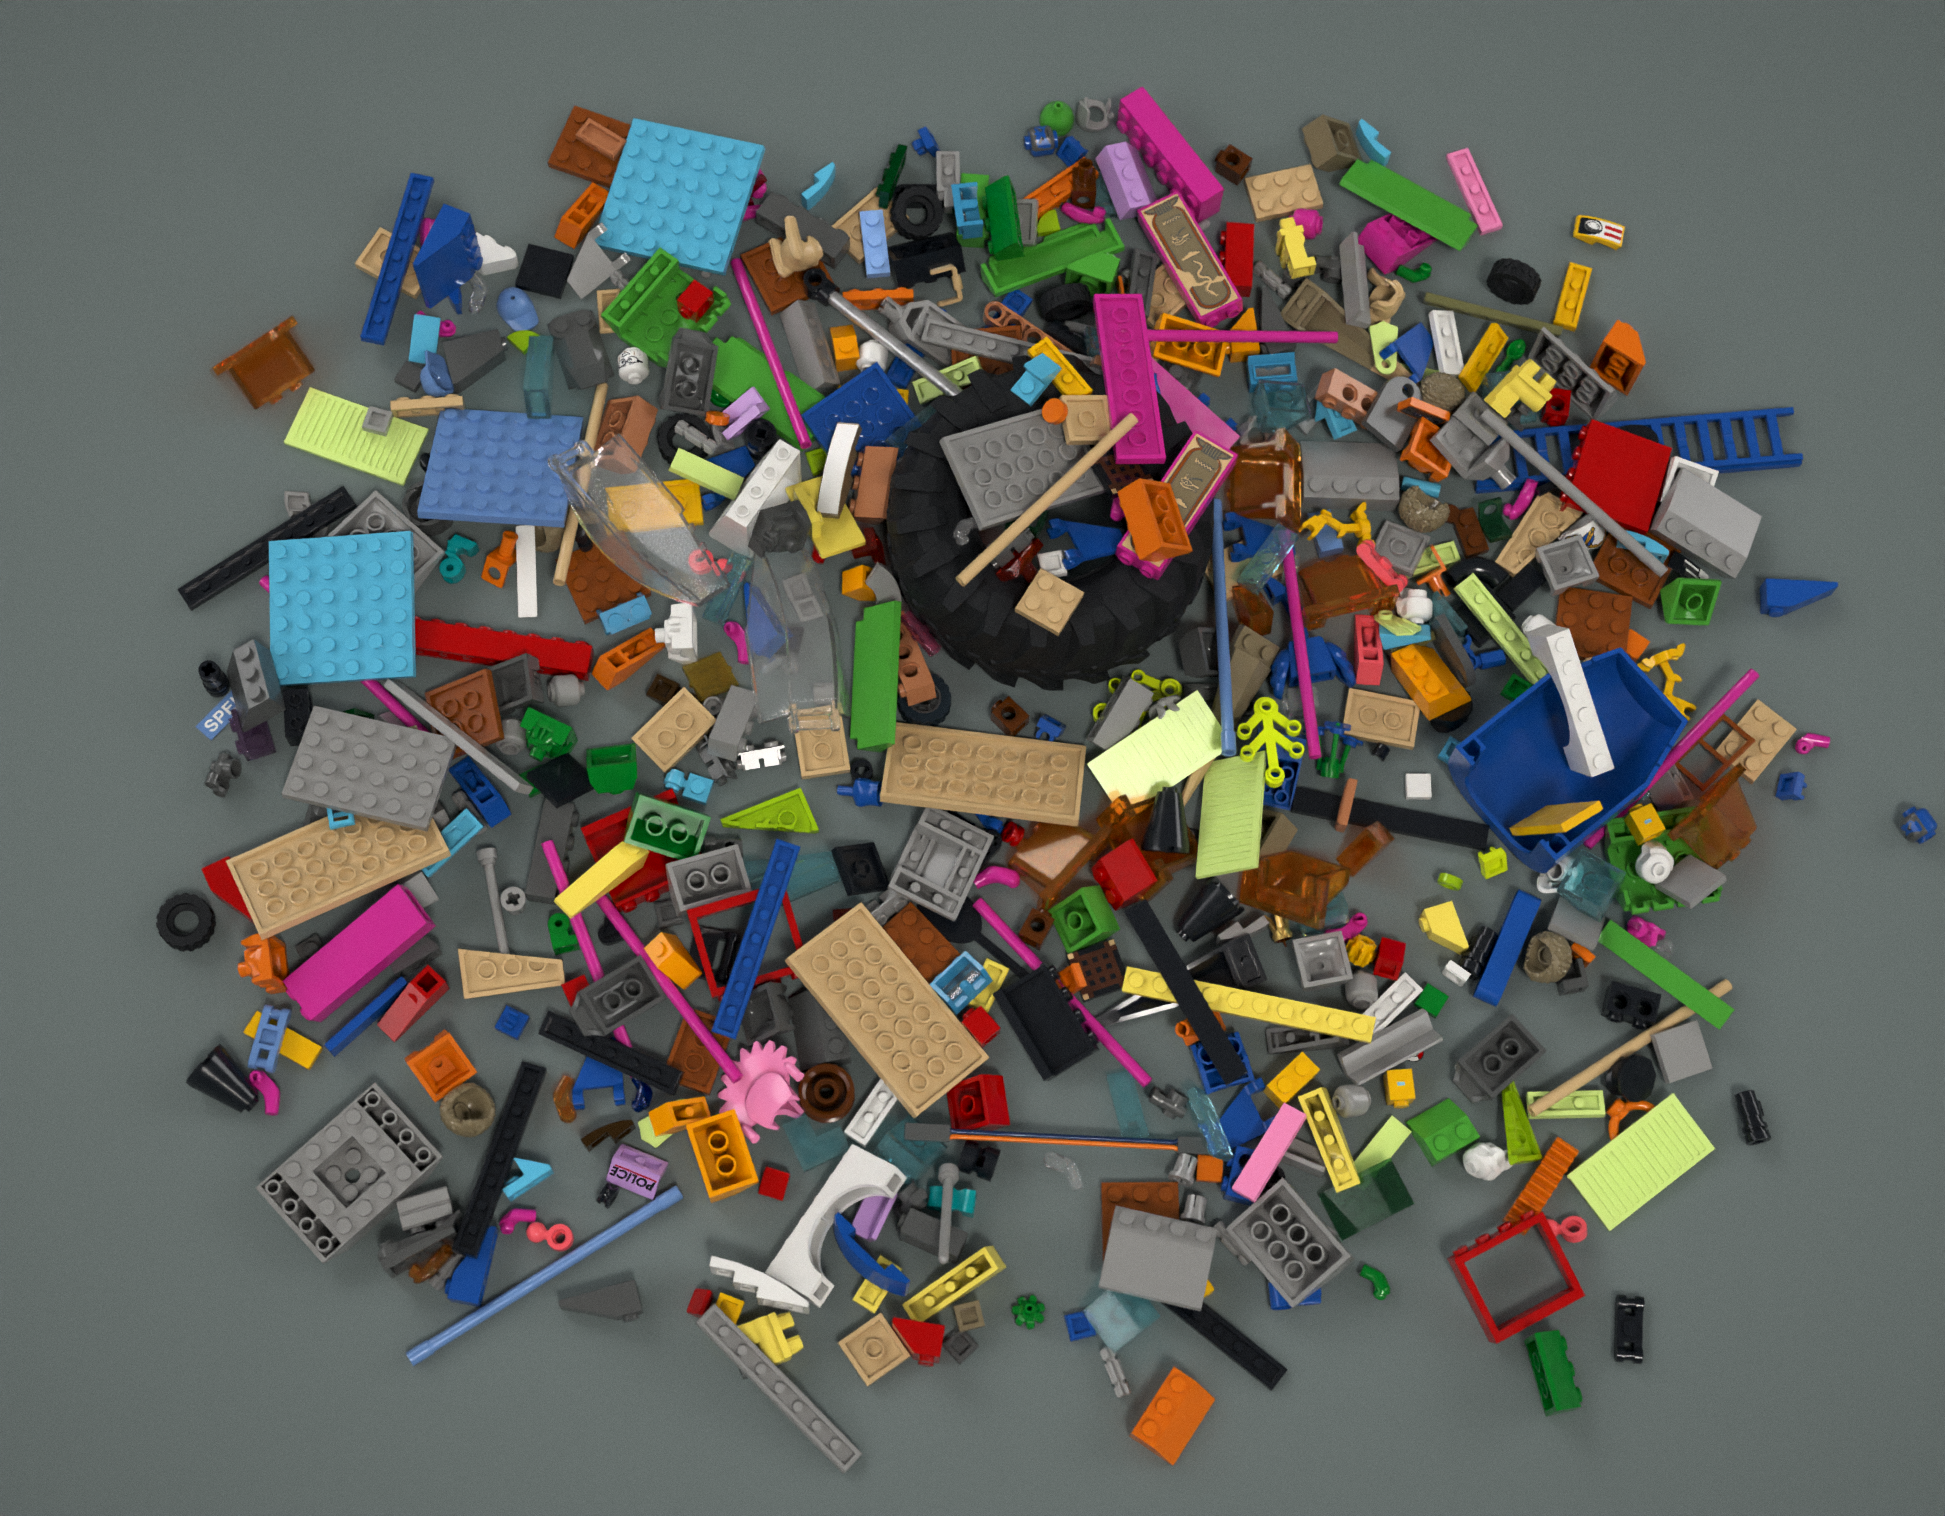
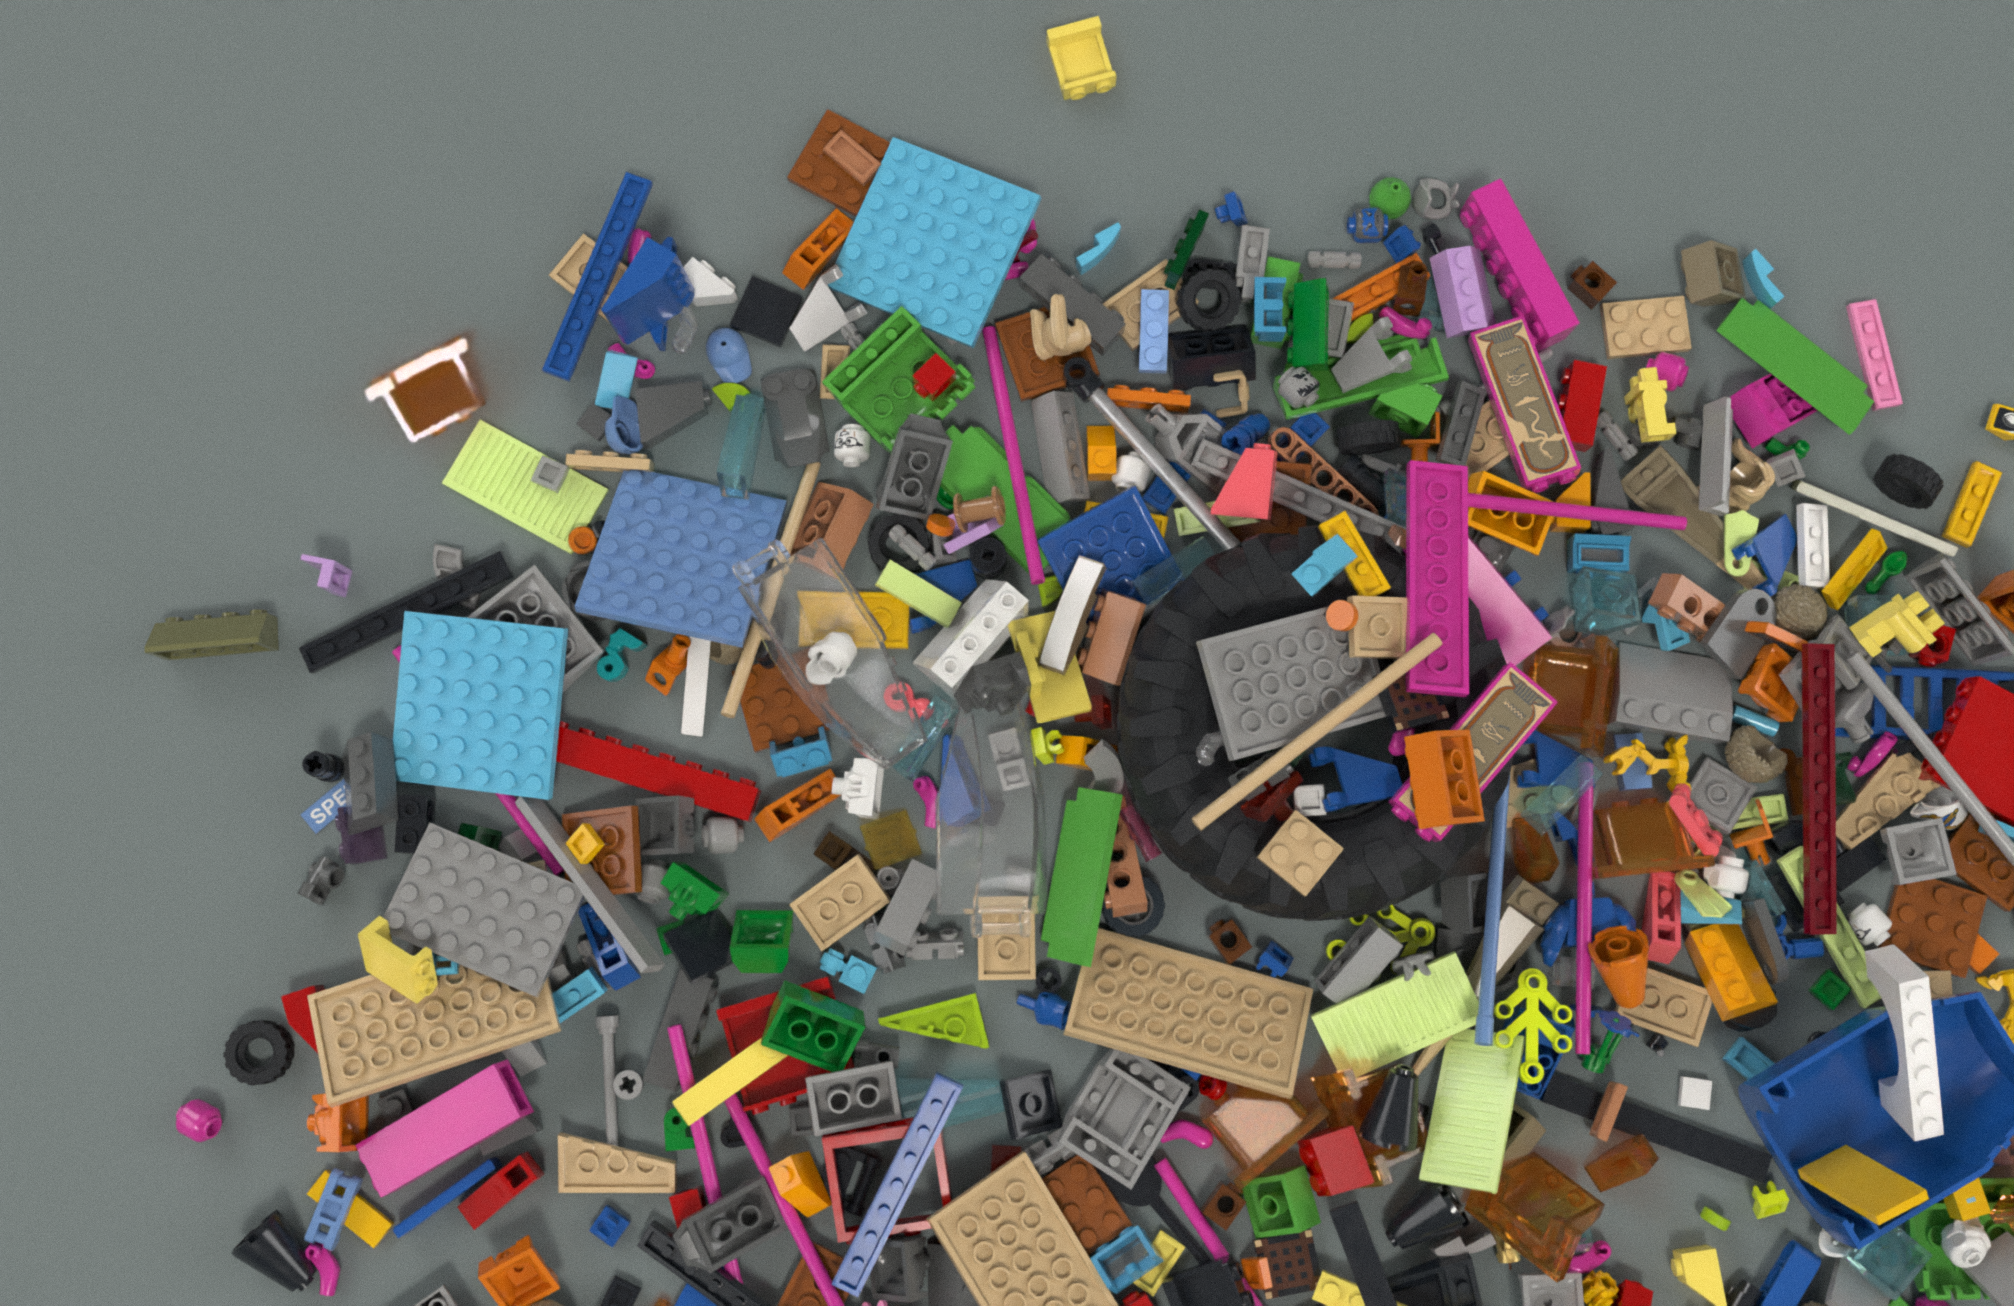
camera: 15 degrees right, 10 degrees up
(103, 588) = (213, 636): none -> olive slope
(140, 984) = (198, 1120): none -> dark pink head
(199, 519) = (333, 575): none -> lavender panel
(302, 817) = (405, 973): none -> light yellow panel
(411, 471) = (582, 540): none -> orange tile
(449, 707) = (585, 843): none -> yellow plate
(641, 529) = (830, 658): none -> white head
(748, 396) = (979, 509): none -> medium nougat hose
(782, 40) = (1080, 58): none -> light yellow panel
(831, 580) = (1043, 744): none -> neon yellow tile
(964, 312) = (1245, 433): none -> blue axle
(970, 345) = (1250, 485): none -> coral slope
(1001, 268) = (1298, 387): none -> light grey head
(1018, 171) = (1334, 259): none -> light grey axle
(1056, 243) = (1367, 359): none -> light grey flag
(1095, 142) = (1431, 234): none -> black hand
(1337, 683) = (1622, 963): none -> orange cone
(1414, 285) = (1786, 467): none -> light grey plate
(1475, 523) = (1819, 789): none -> dark red plate

